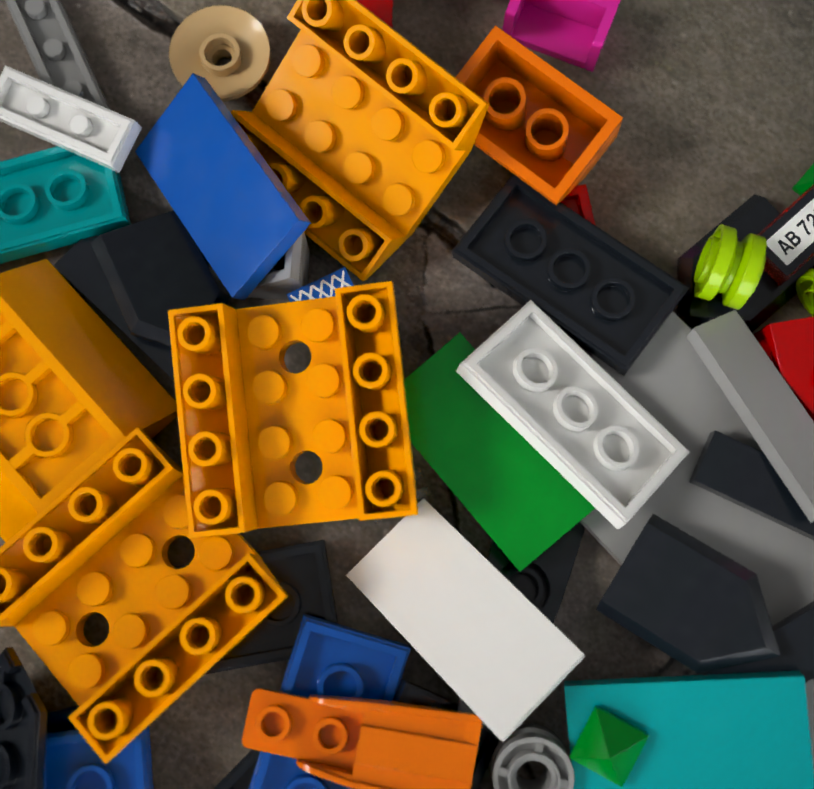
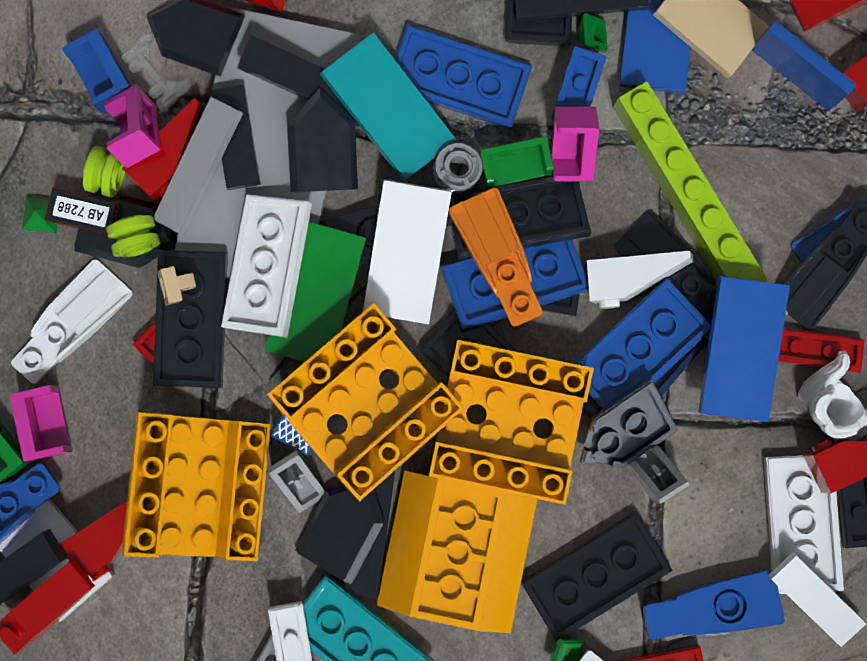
camera: 130 degrees left, 5 degrees up
(218, 34) = (177, 601): tan dish -> none
(221, 187) = (272, 534): blue tile -> none
(537, 117) = (117, 387): orange slope -> none
(608, 745) = (418, 140): green slope -> none
(628, 269) = (173, 285): none -> tan tile
(667, 138) = (71, 320): none -> white piece

